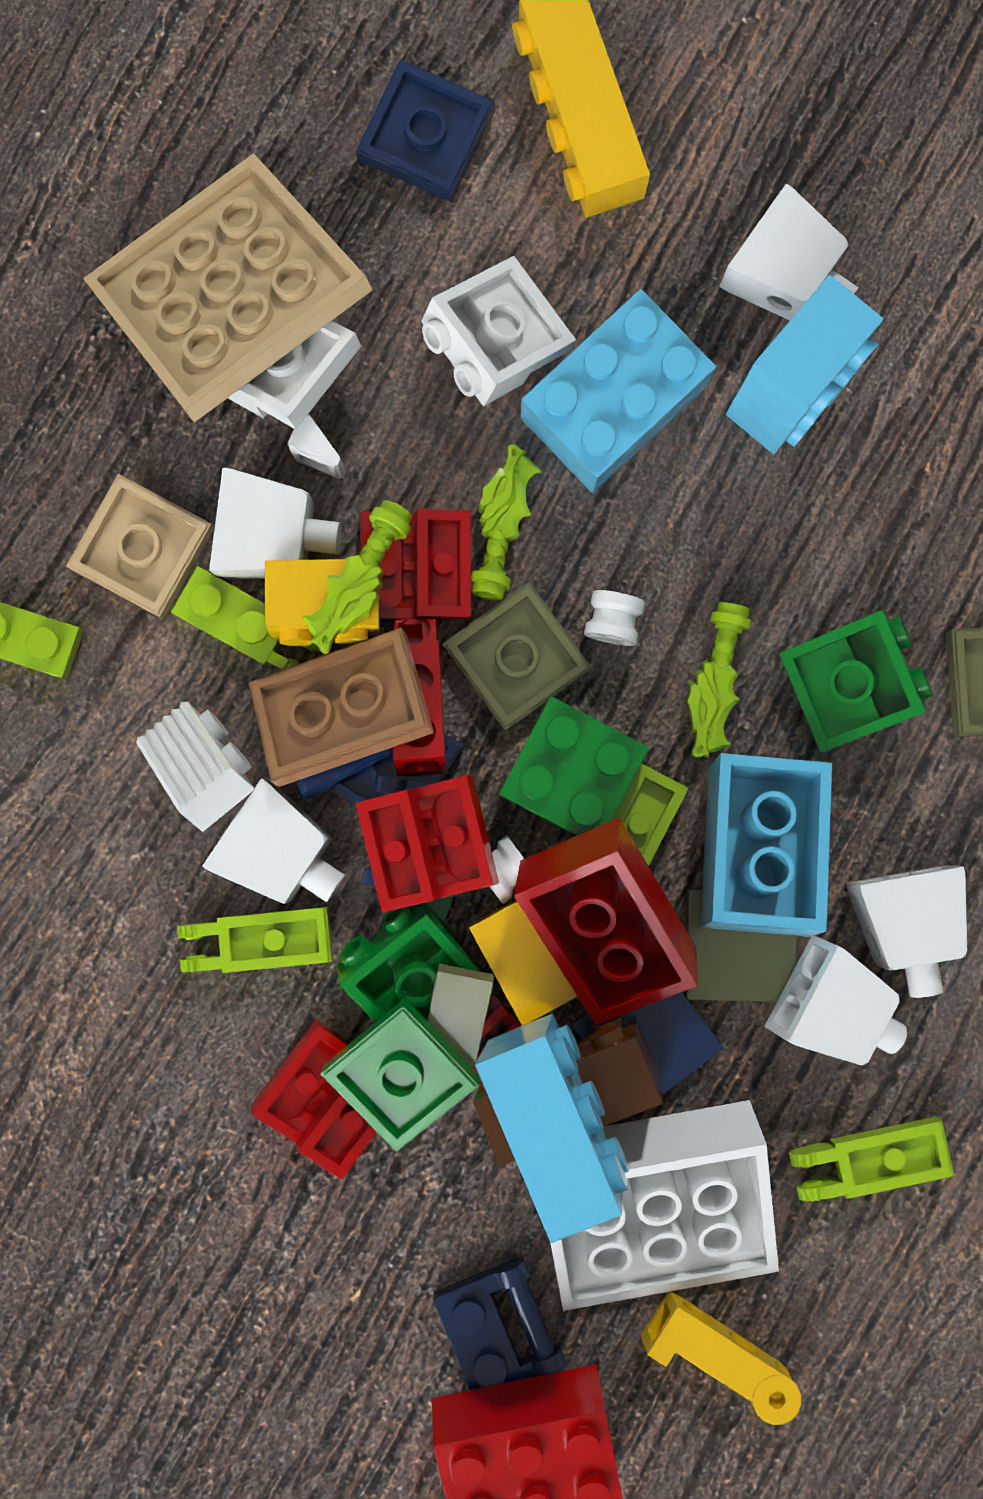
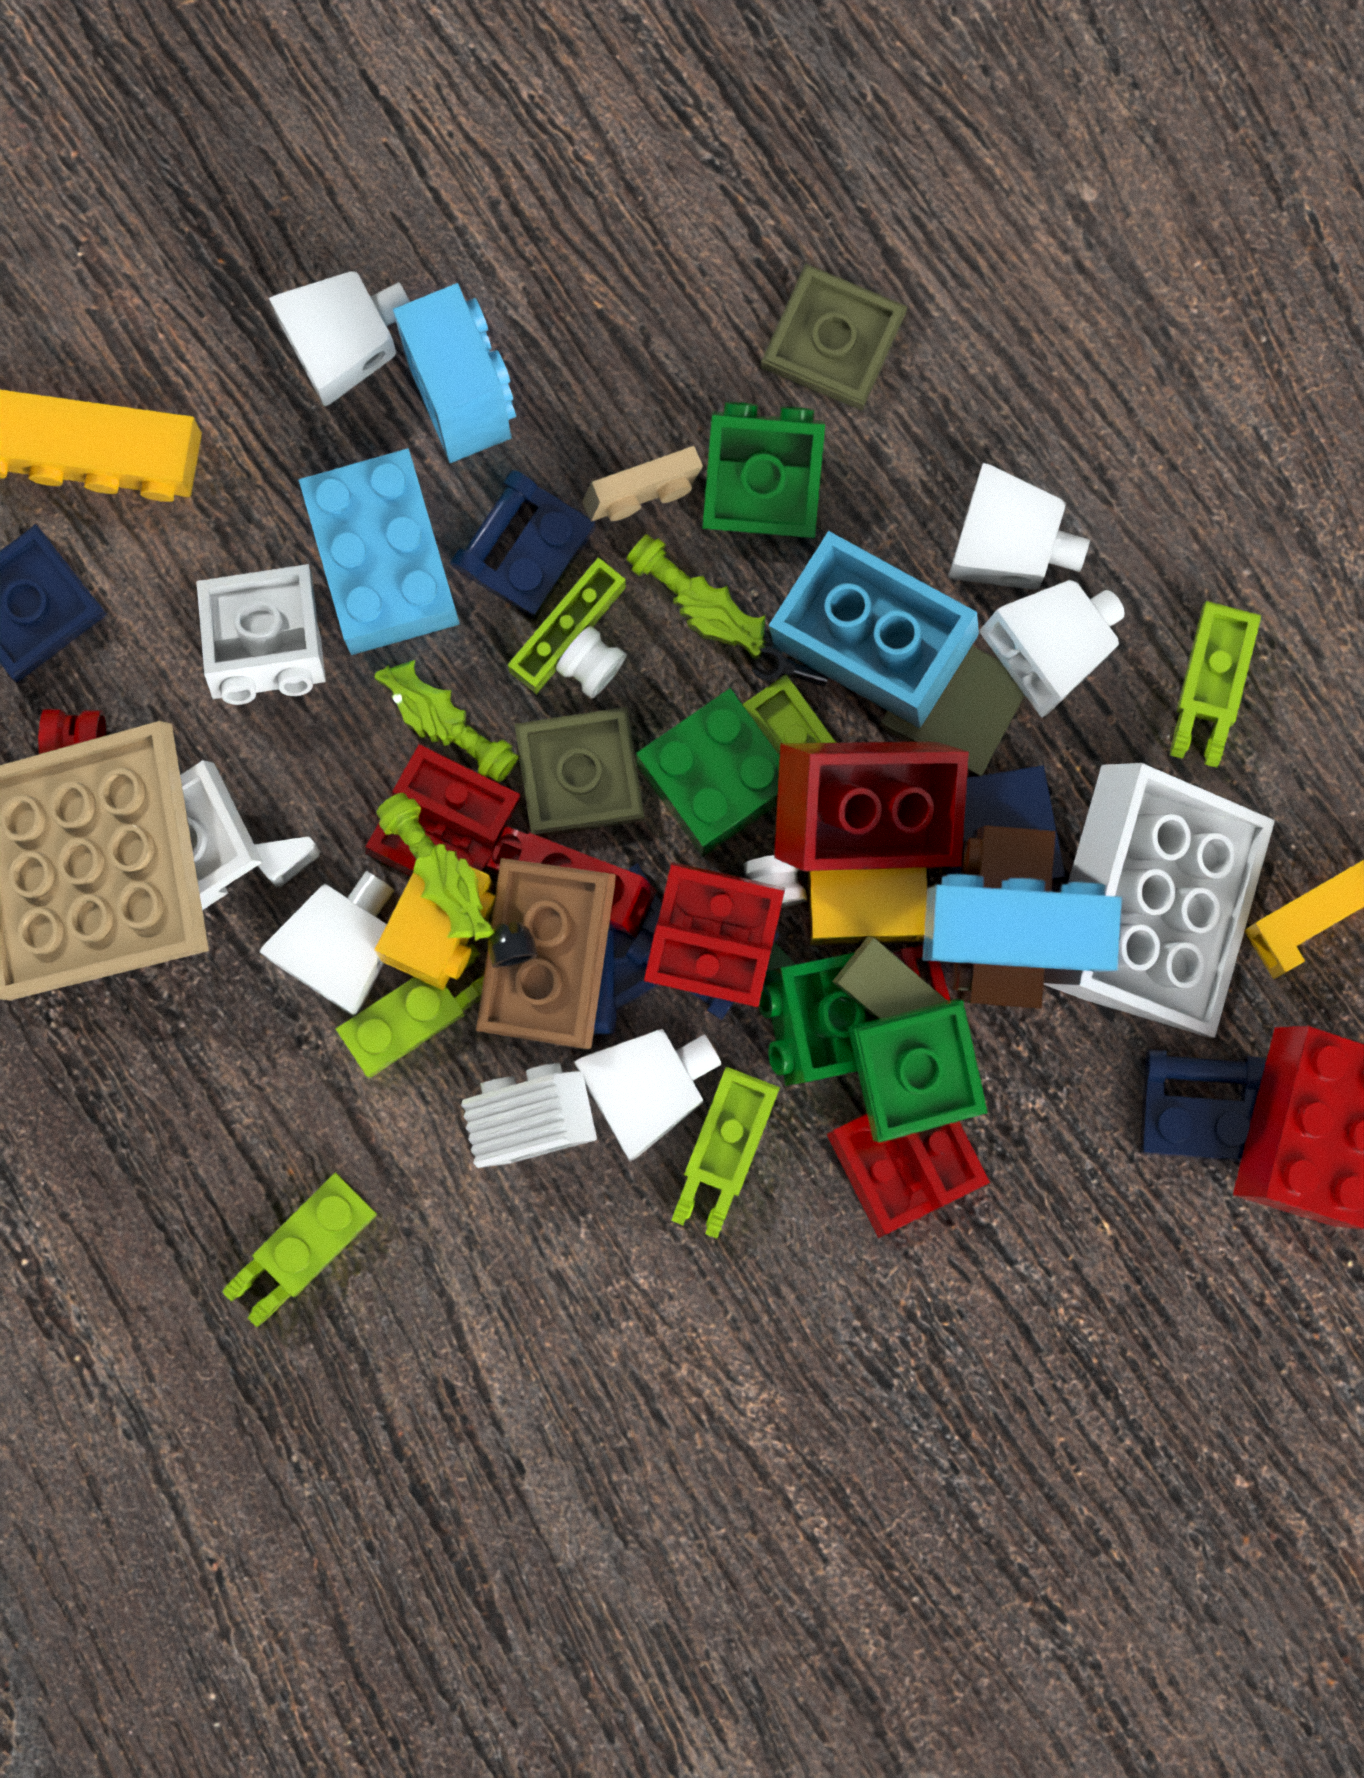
camera: 65 degrees left, 5 degrees down
(140, 546) = (285, 1077): tan tile -> none
(324, 676) = (511, 945): none -> black hinge
(330, 210) = (63, 730): none -> red wheel
(652, 584) = (576, 612): none -> lime piece
(687, 528) = (539, 554): none -> dark blue plate
(695, 785) = (788, 667): none -> black hand
(804, 596) = (624, 491): none -> tan plate

